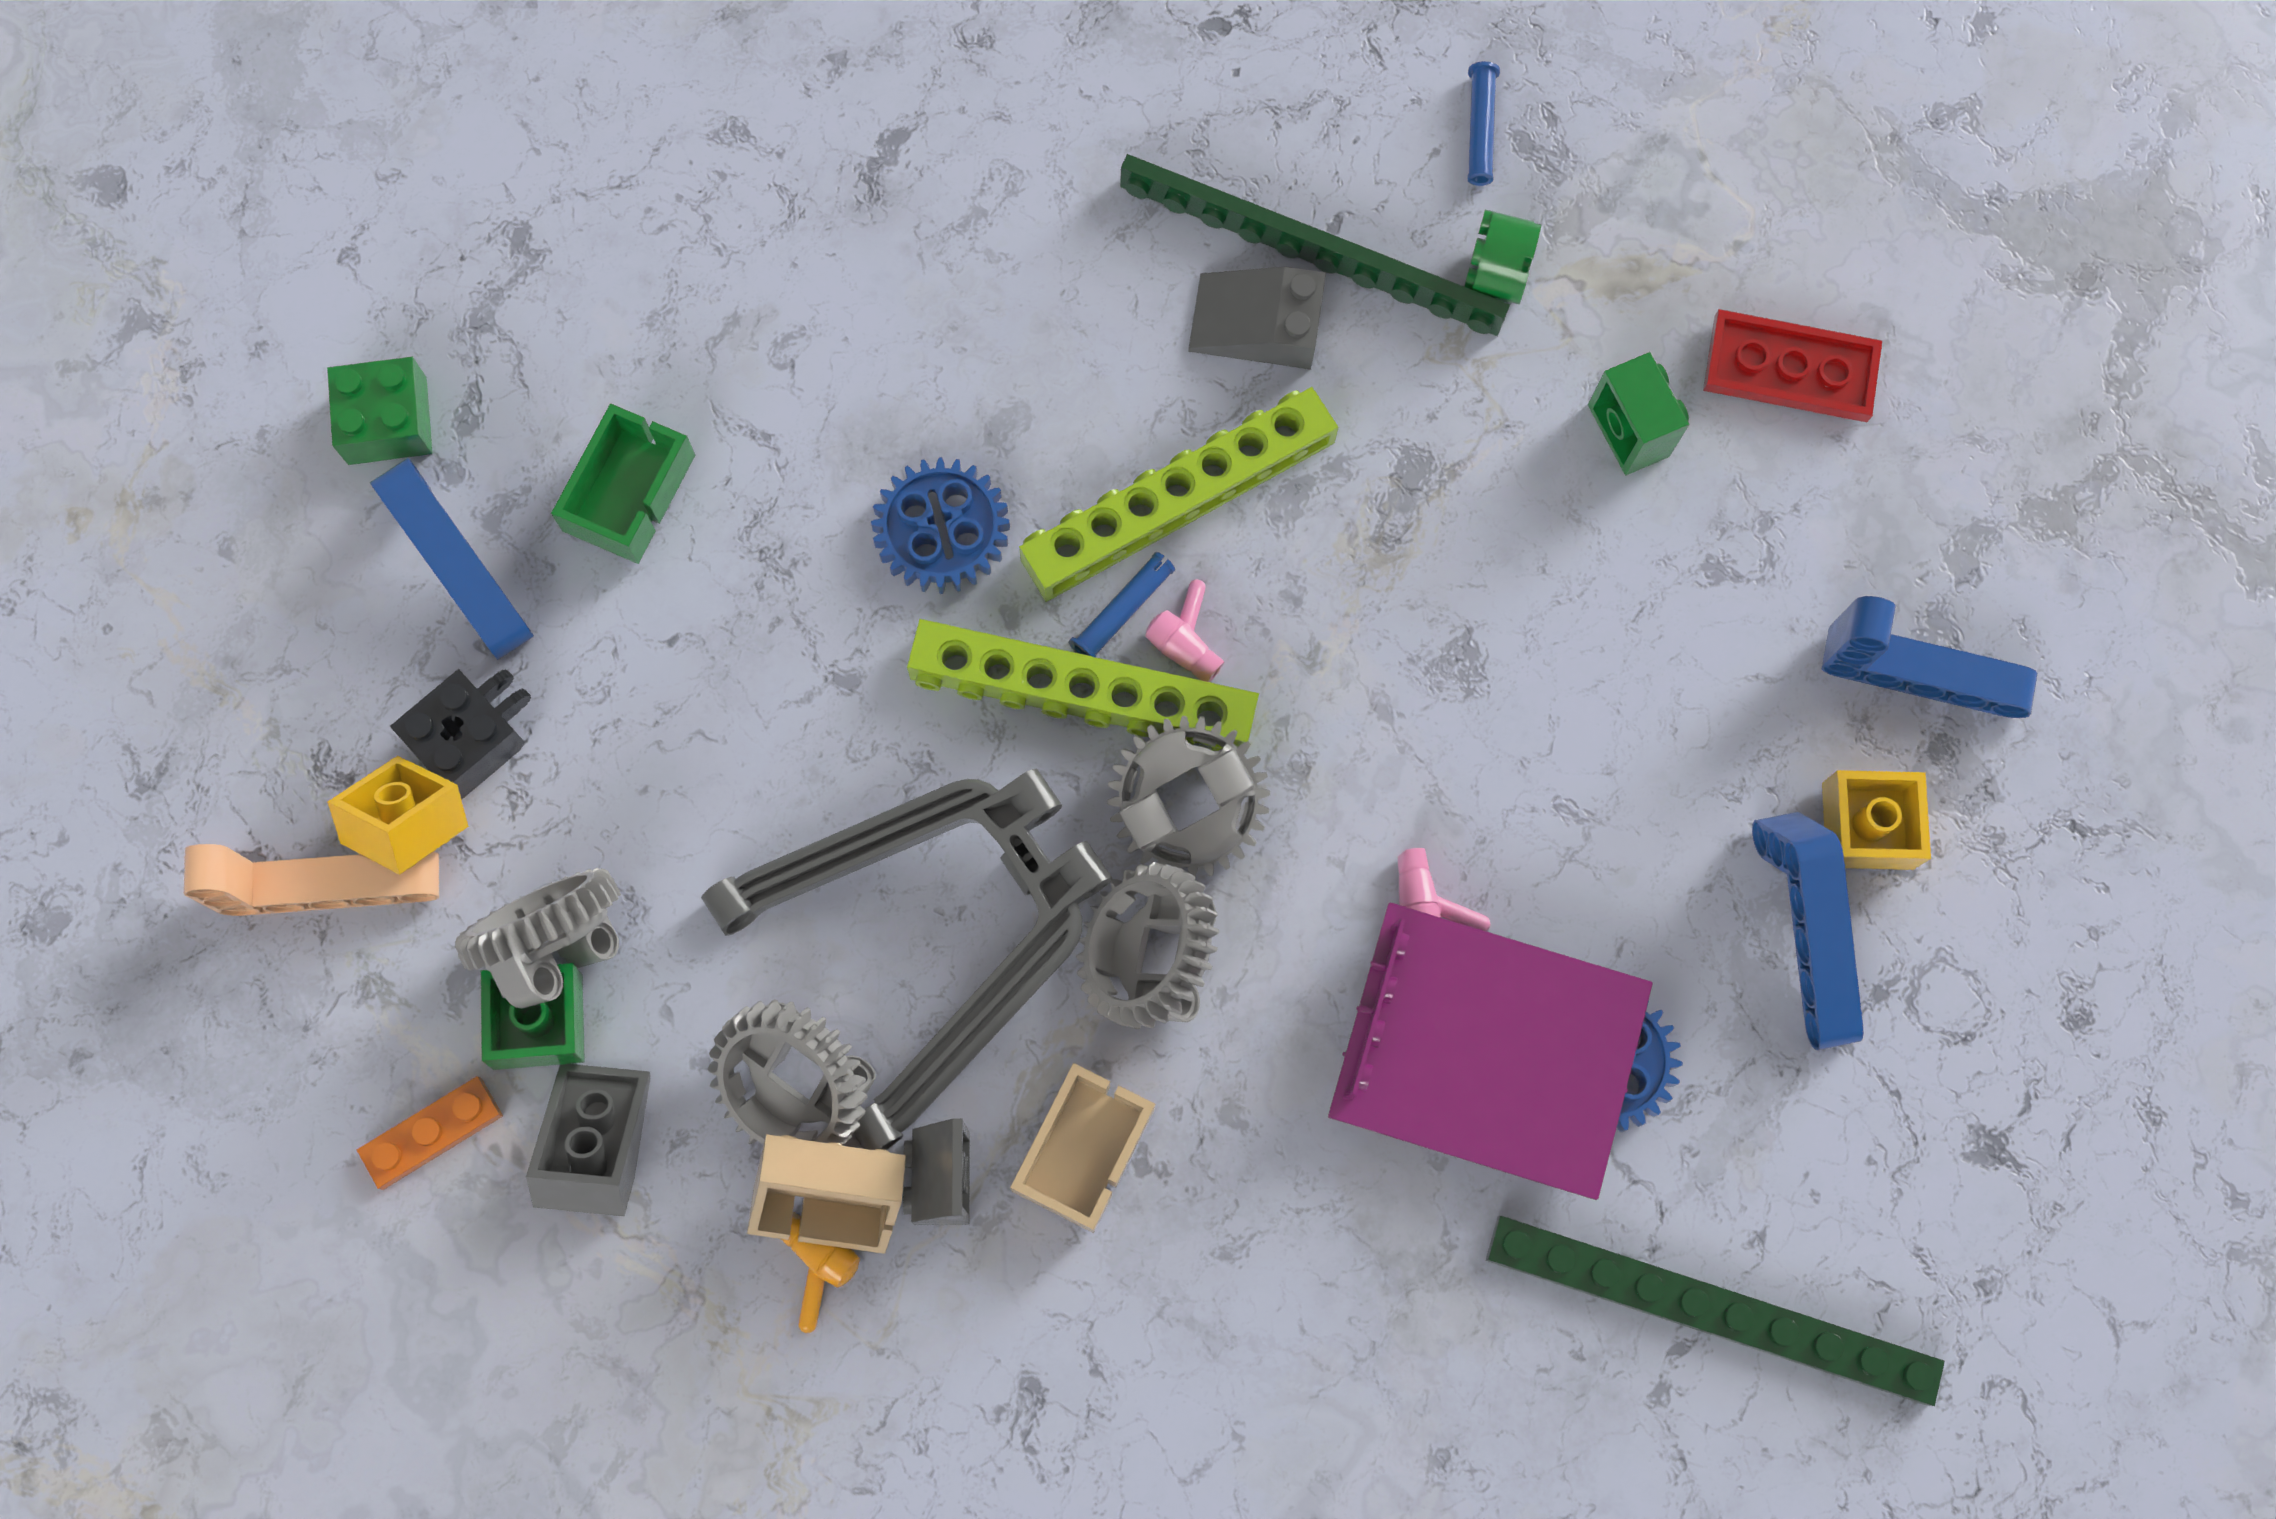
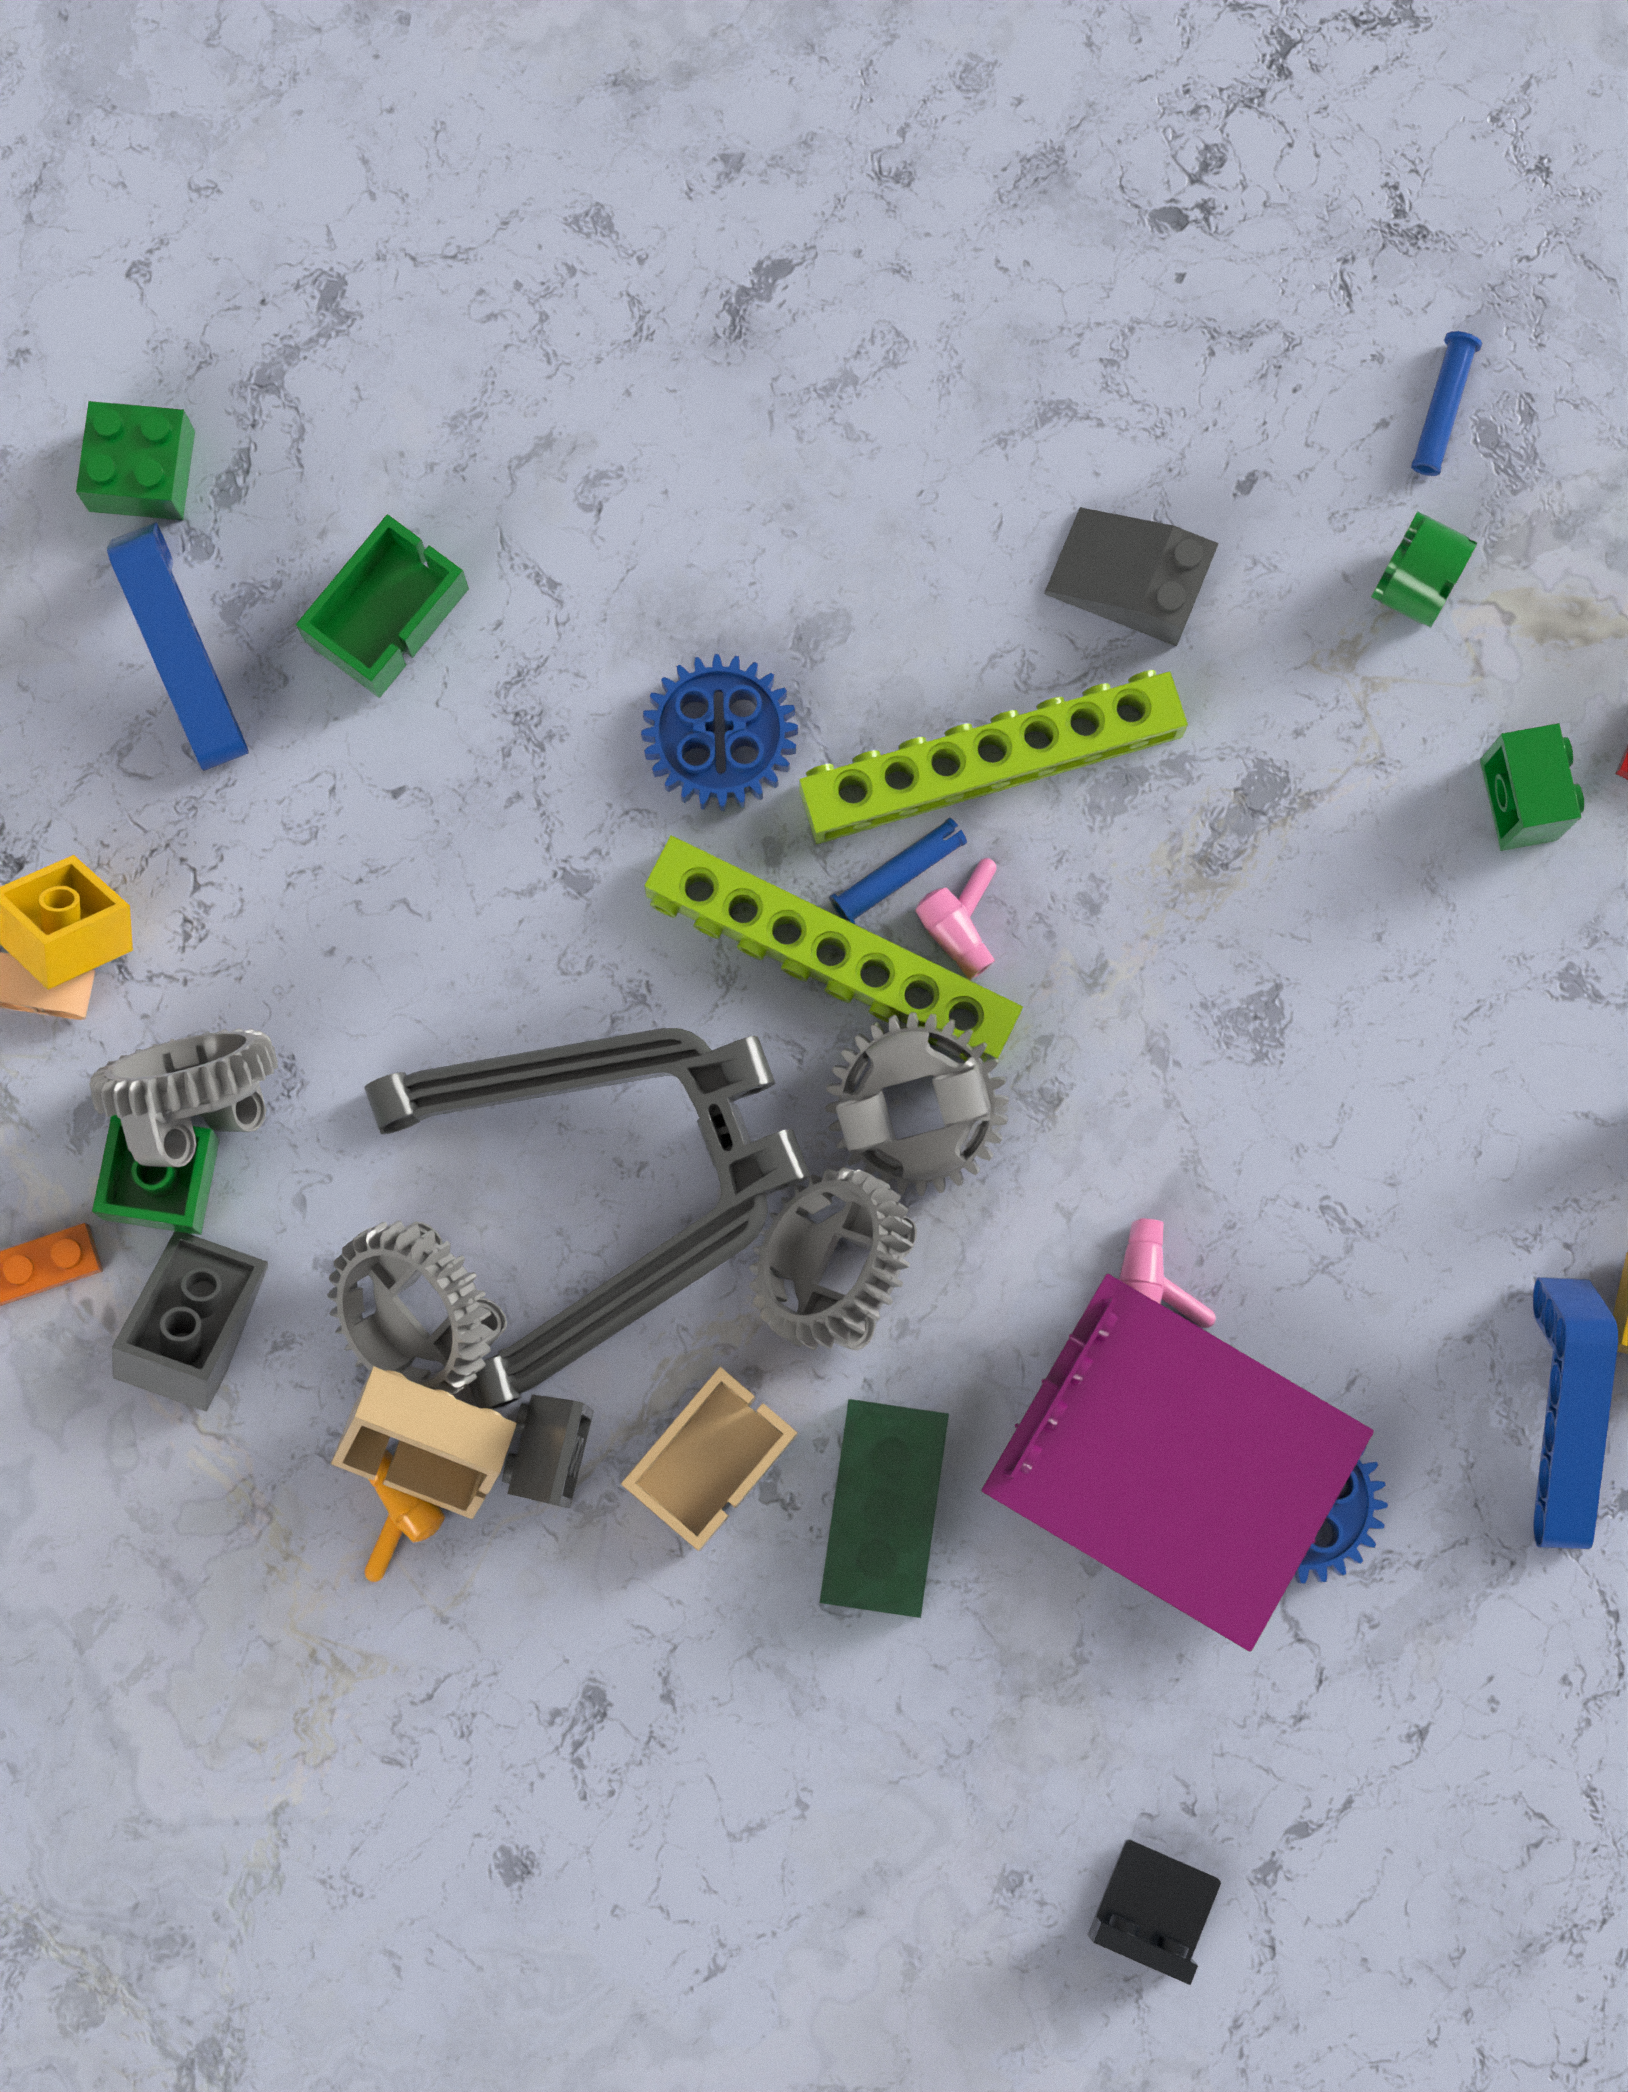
camera: 15 degrees right, 5 degrees up
(457, 707) = (174, 846): black hinge -> none
(1246, 1154) = (884, 1508): none -> clear green brick
(1313, 245) = (1228, 515): dark green plate -> none
(1573, 1450) = (1154, 1910): none -> black bracket
(1716, 1311) = (1350, 1800): dark green plate -> none

